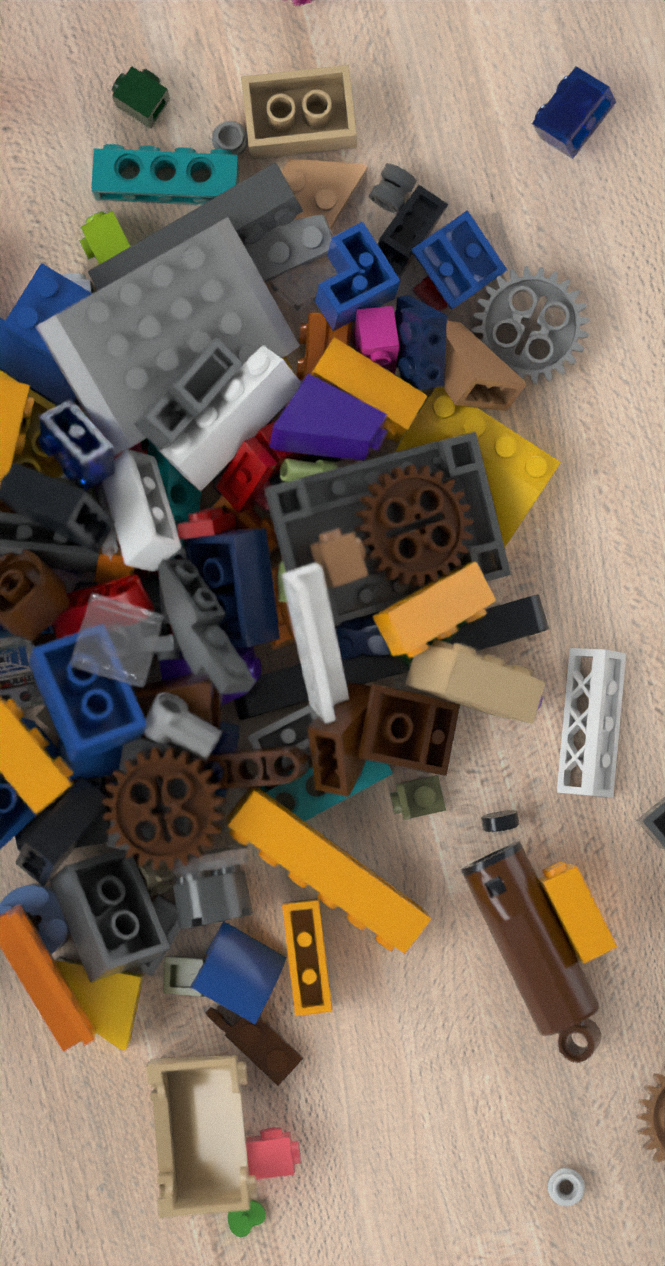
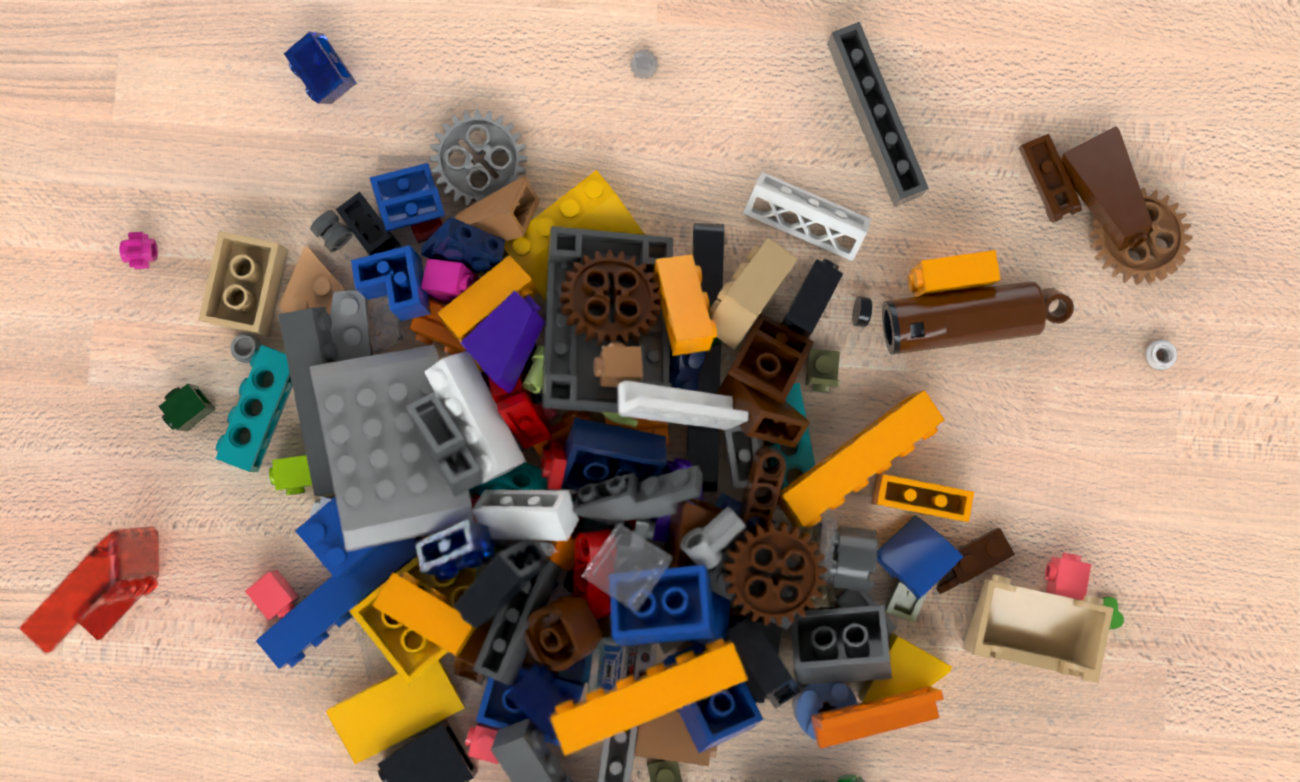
camera: 75 degrees left, 0 degrees up
(497, 757) = (812, 297): none -> black slope

